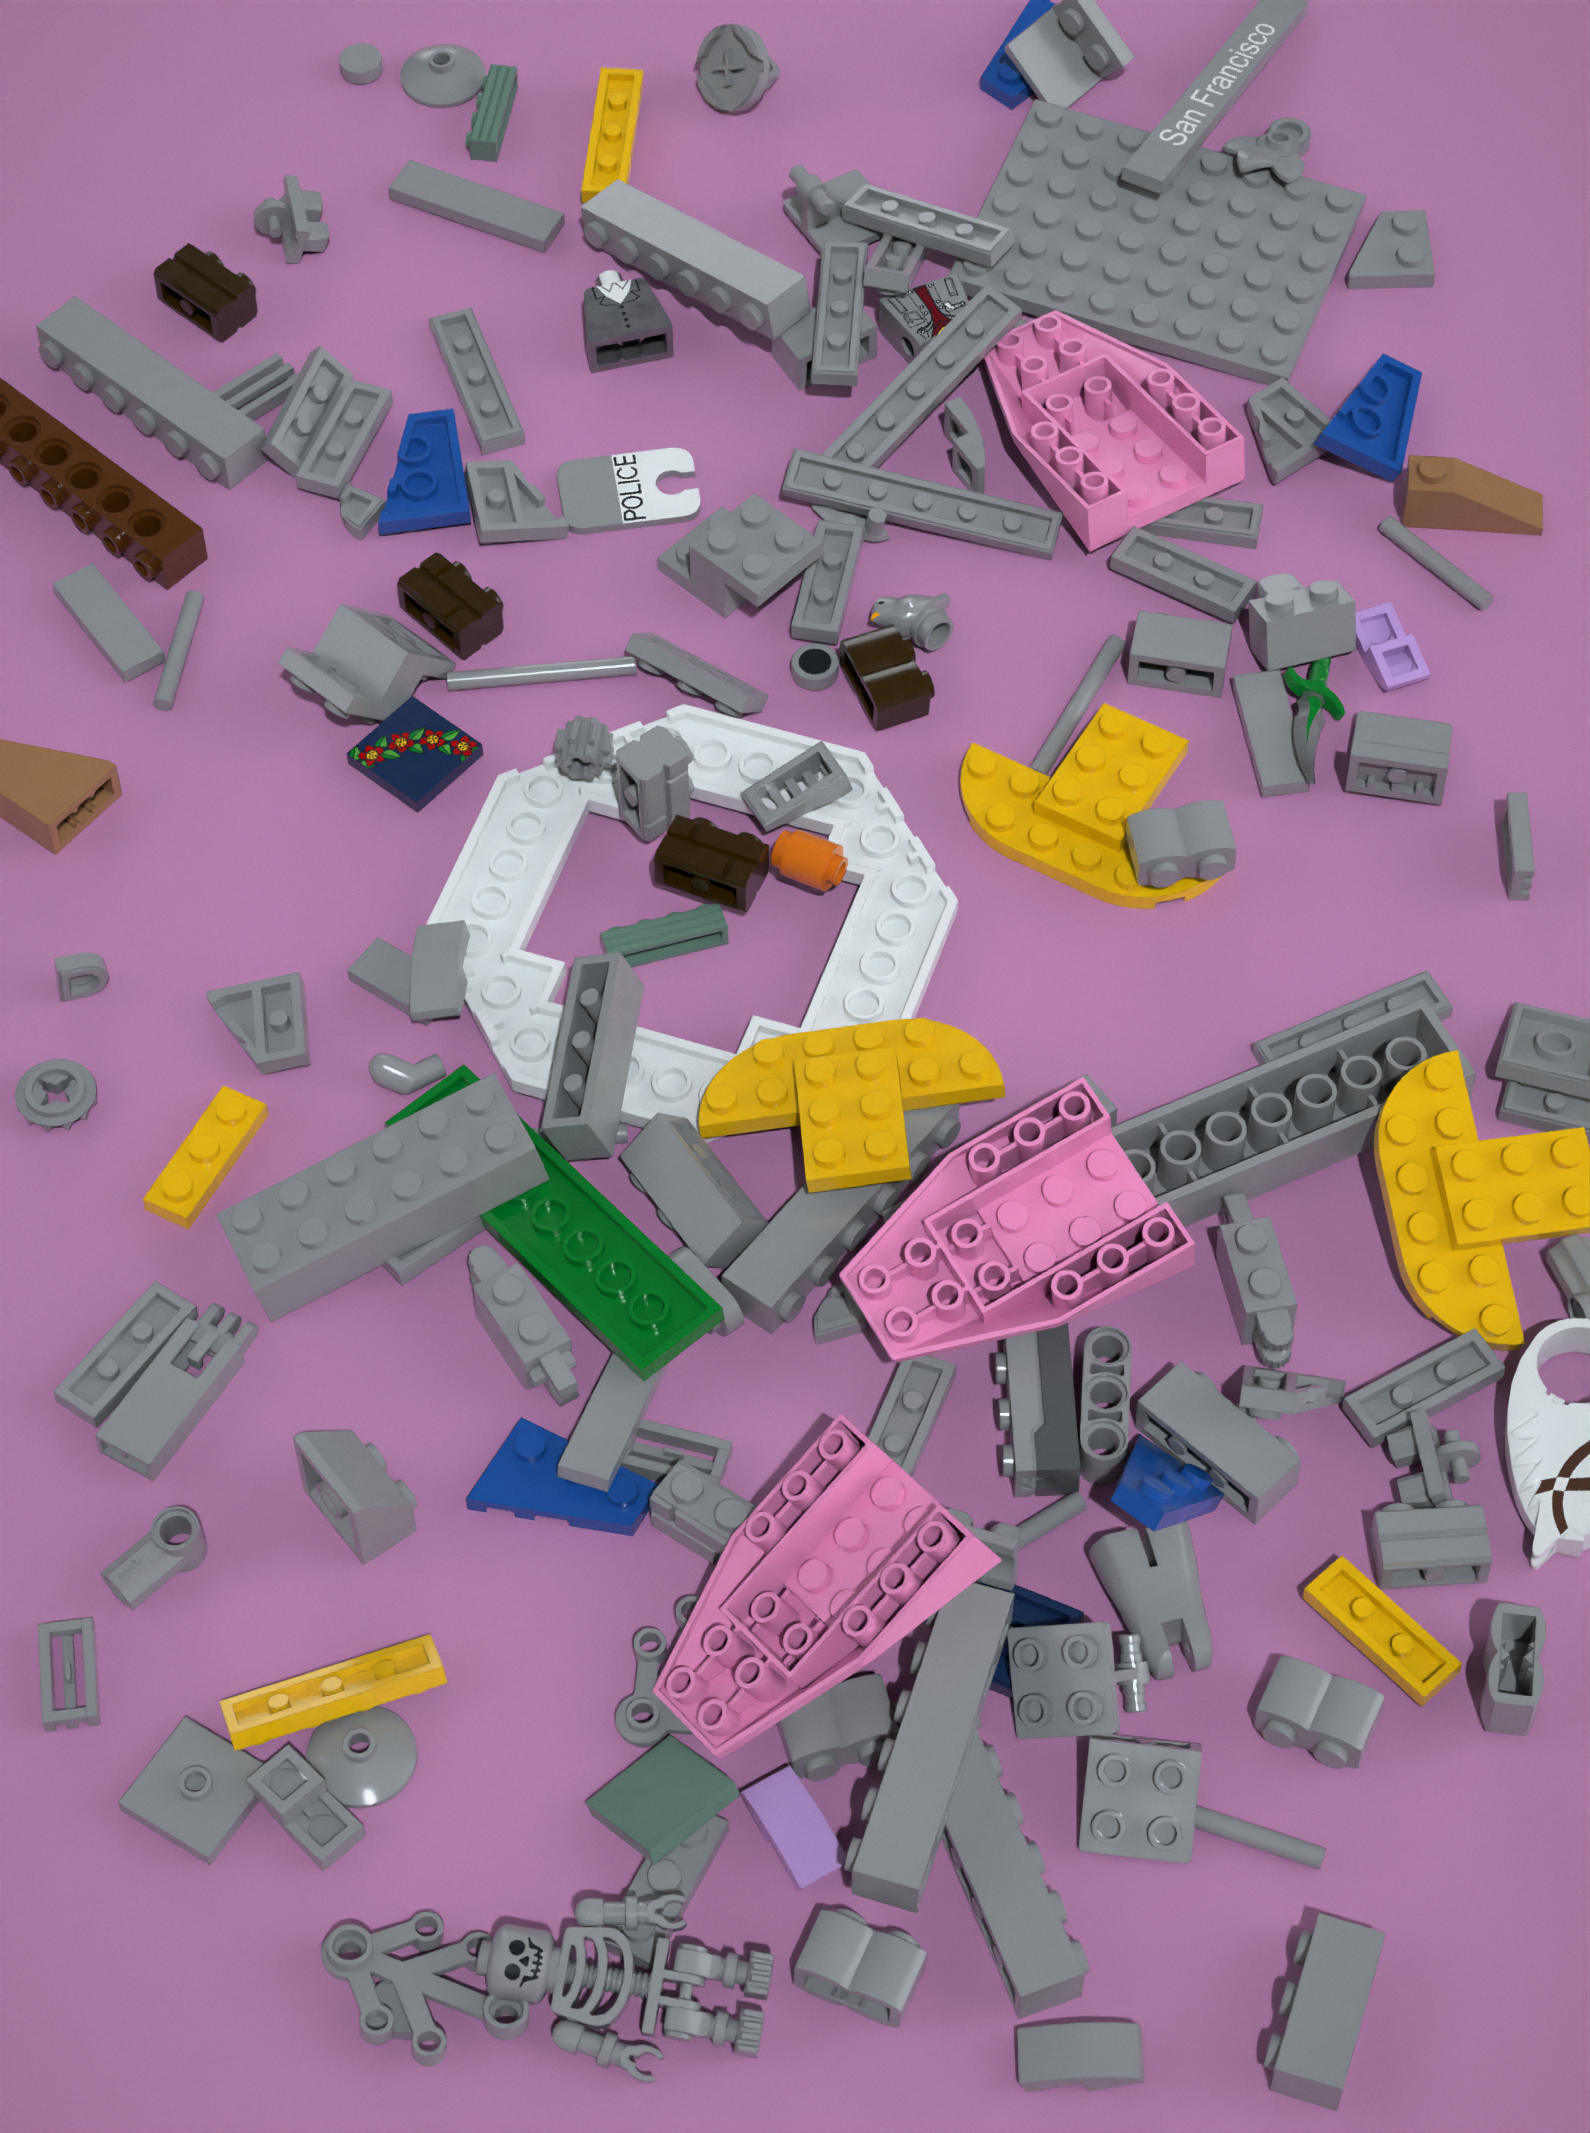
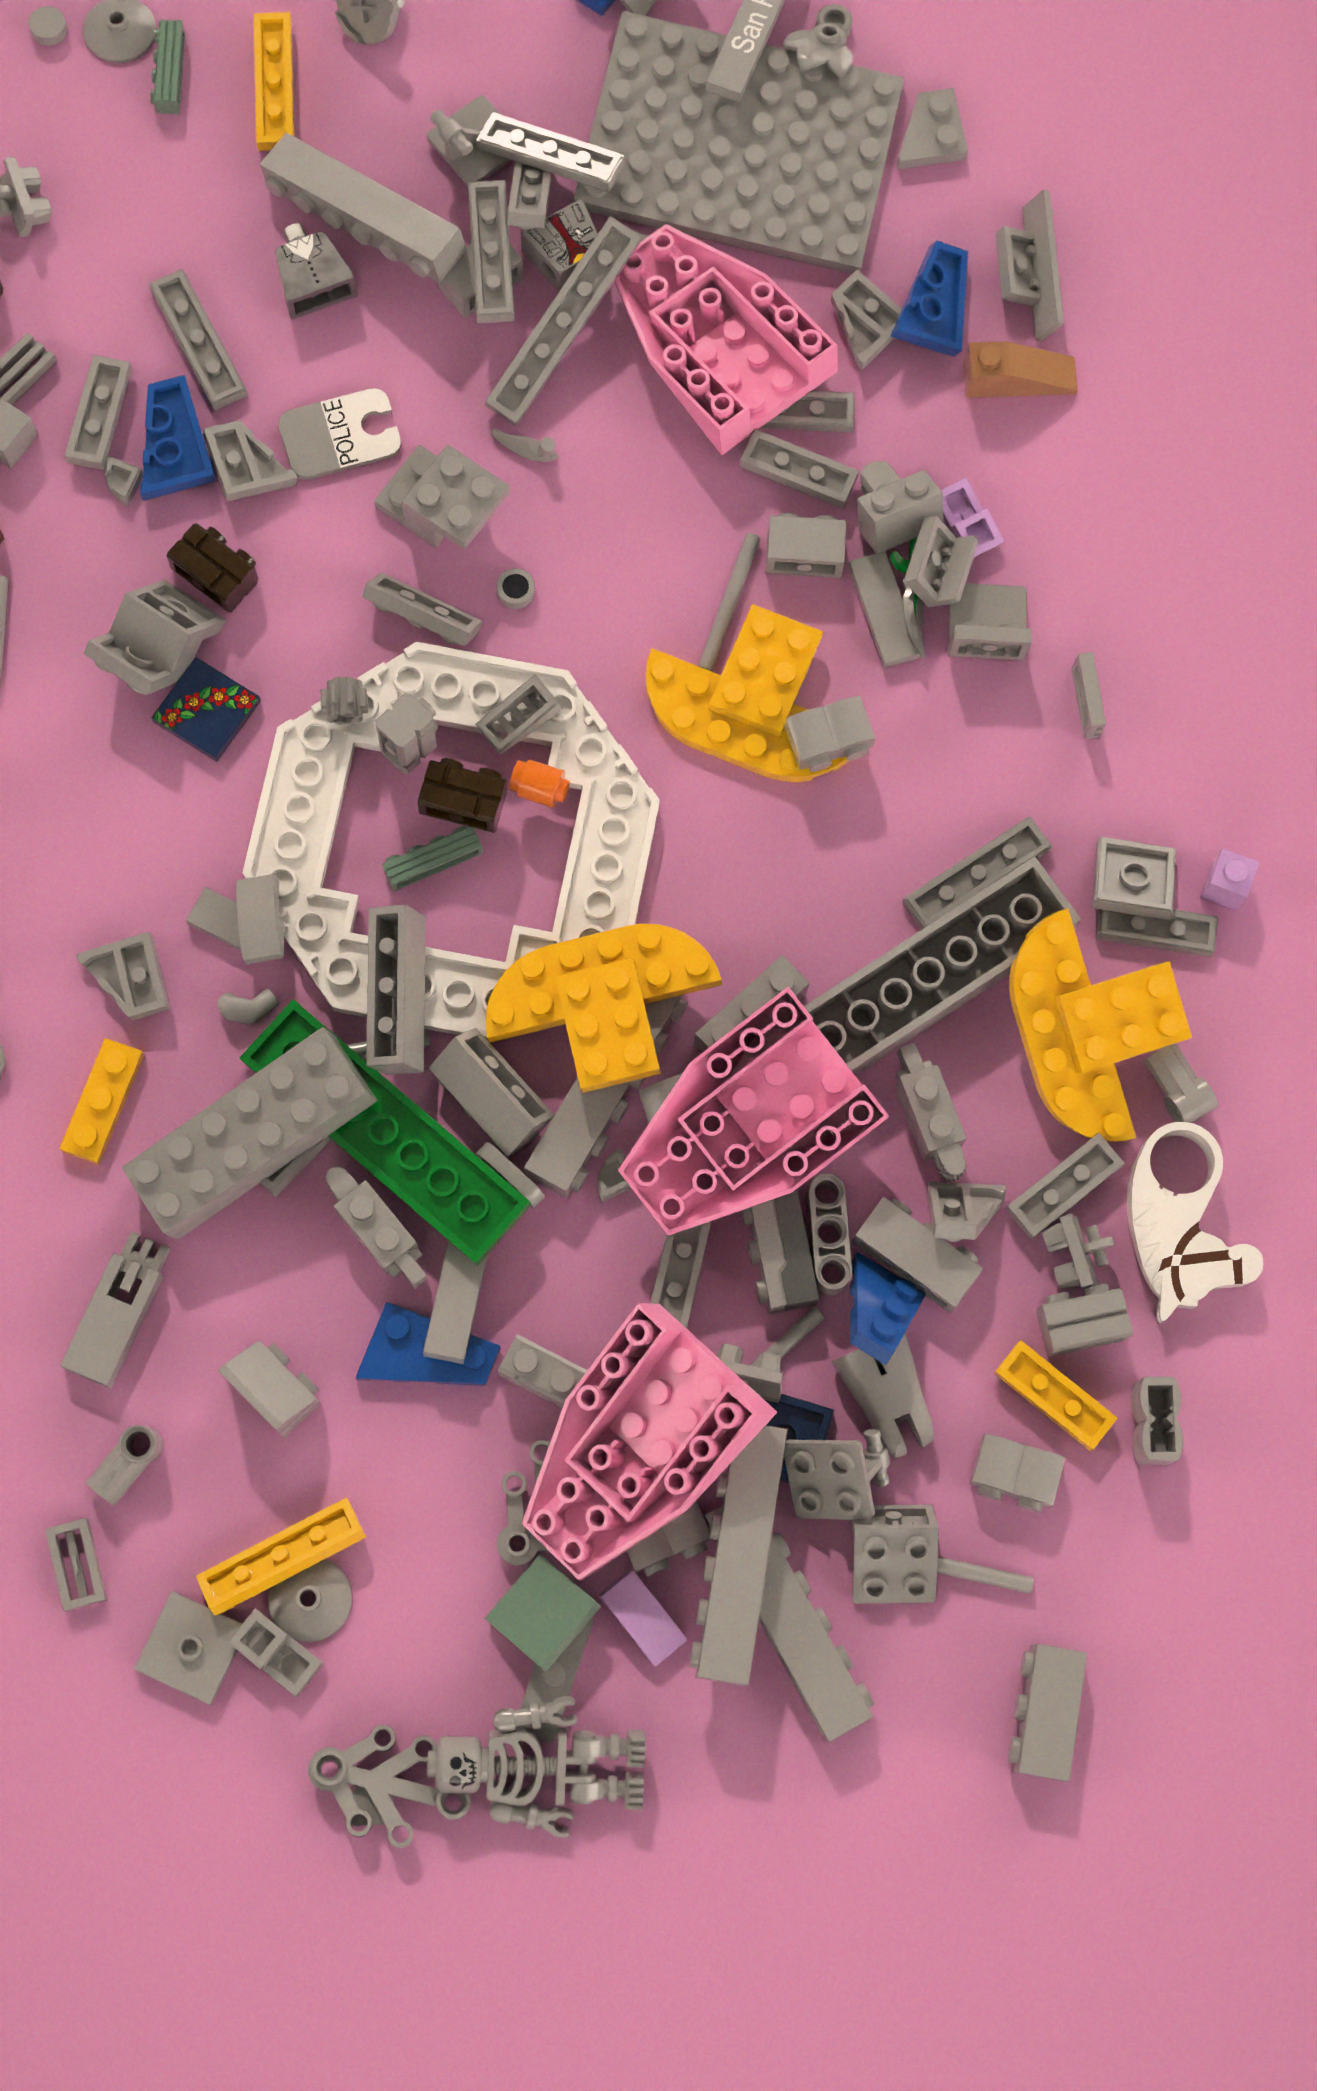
camera: 15 degrees left, 20 degrees up
(123, 1354) = (70, 1287): light grey plate -> none
(306, 410) = (62, 388): light grey plate -> none
(477, 206) = (170, 163): light grey tile -> none
(541, 673) = (295, 620): light grey bar -> none
(656, 1462) = (515, 1301): light grey tile -> none
(828, 583) = (516, 513): light grey plate -> none
(860, 1966) = (708, 1725): light grey brick -> none
(885, 677) = (574, 595): dark brown brick -> none
(917, 617) = (590, 536): light grey animal -> none
(923, 504) = (581, 425): light grey tile -> none
(967, 444) = (613, 370): light grey slope -> none
(1077, 2053) = (875, 1771): light grey slope -> none
(1343, 682) = (940, 563): none -> light grey bracket
(1436, 563) = (997, 432): light grey bar -> none
(1497, 394) = (1030, 265): none -> light grey bracket

